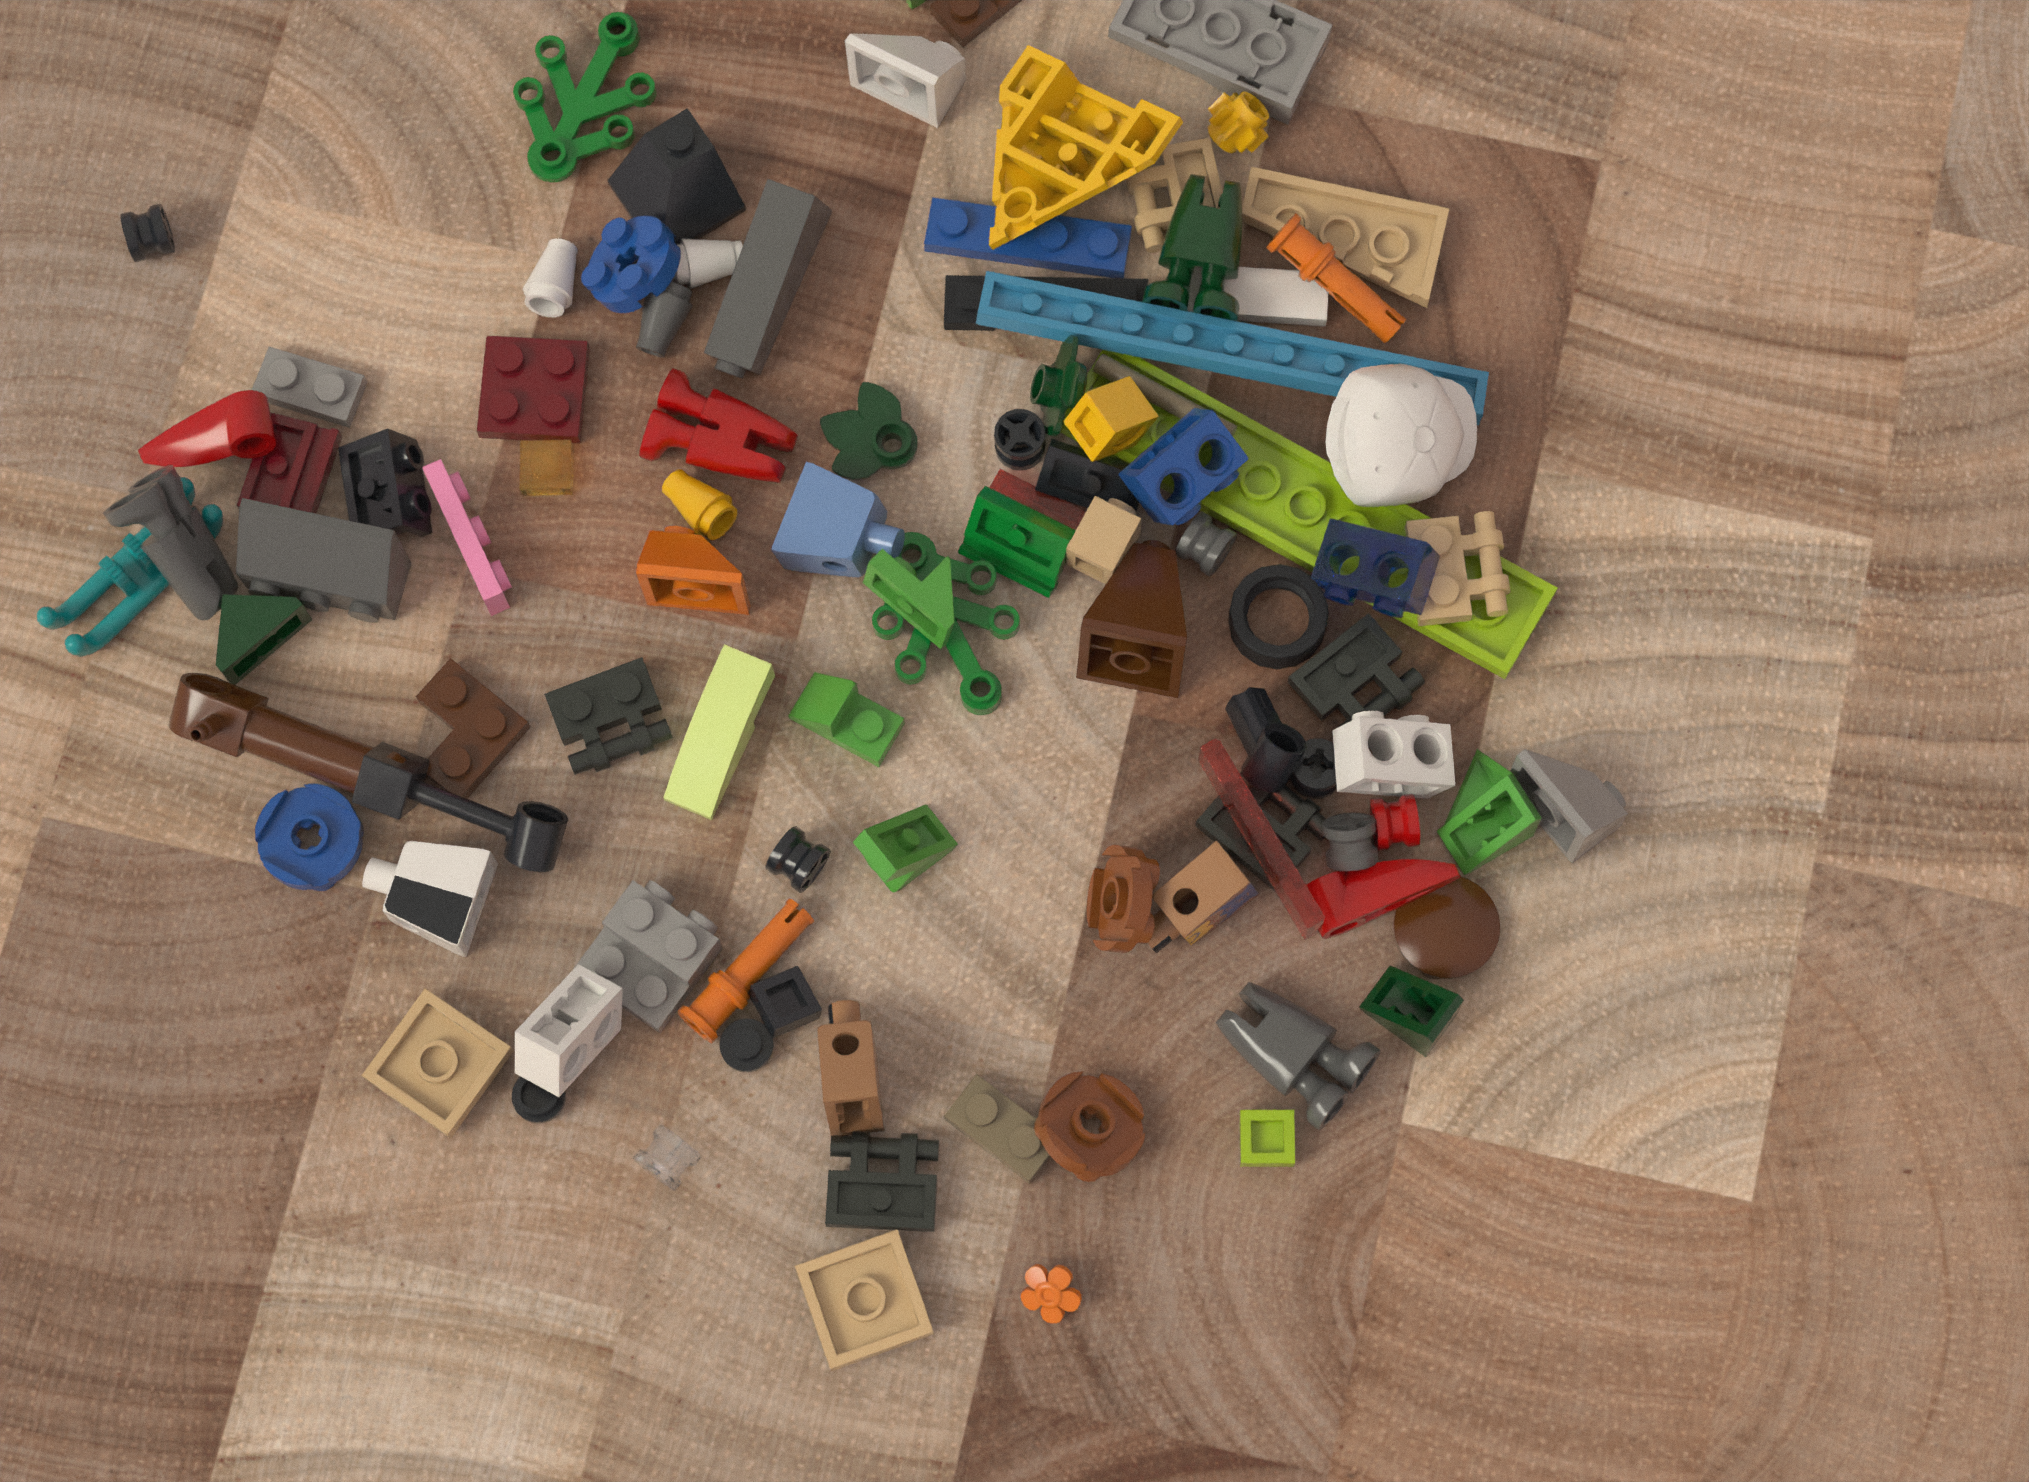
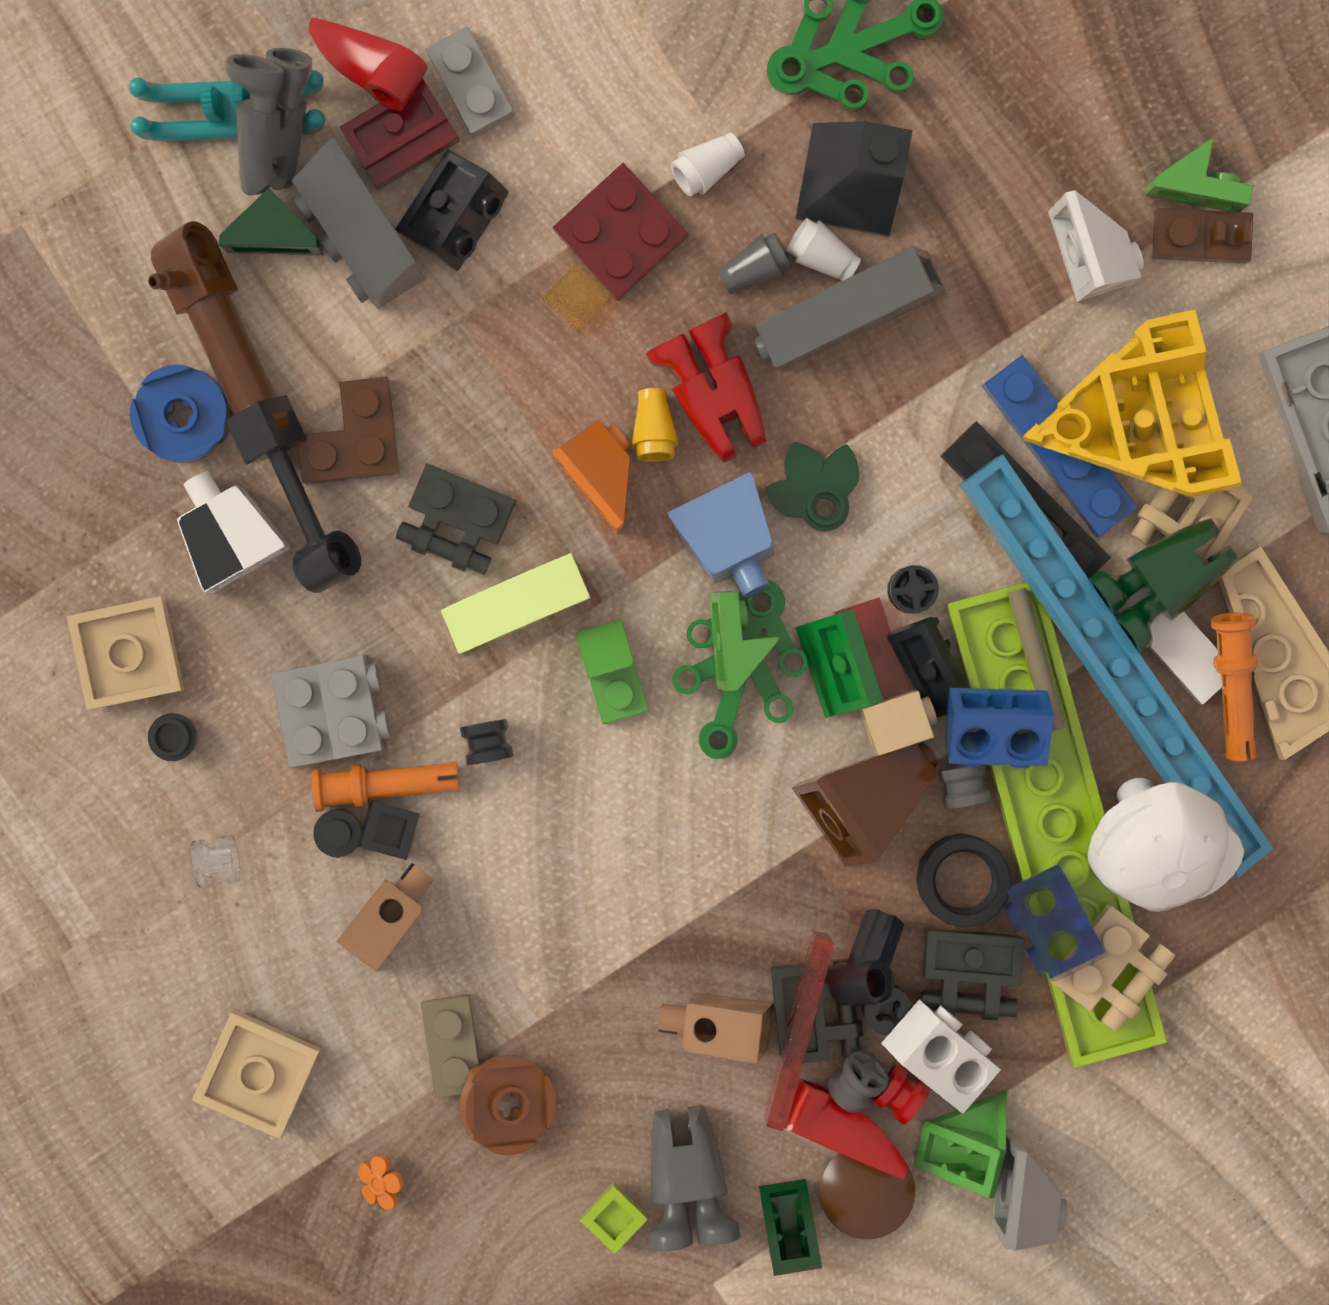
camera: 40 degrees right, 15 degrees up
(469, 536) = (477, 300): bright pink plate -> none
(568, 1030) = (223, 721): white brick -> none
(610, 270) = (764, 186): blue plate -> none
(881, 1198) = (329, 1019): pearl dark grey plate -> none
(905, 846) = (565, 801): bright green slope -> none
(1059, 386) = (973, 583): dark green plate -> none
(1110, 418) = (982, 645): yellow brick -> none
(1122, 899) = (669, 980): dark orange plate -> none
(1238, 122) = (1284, 505): yellow gear -> none

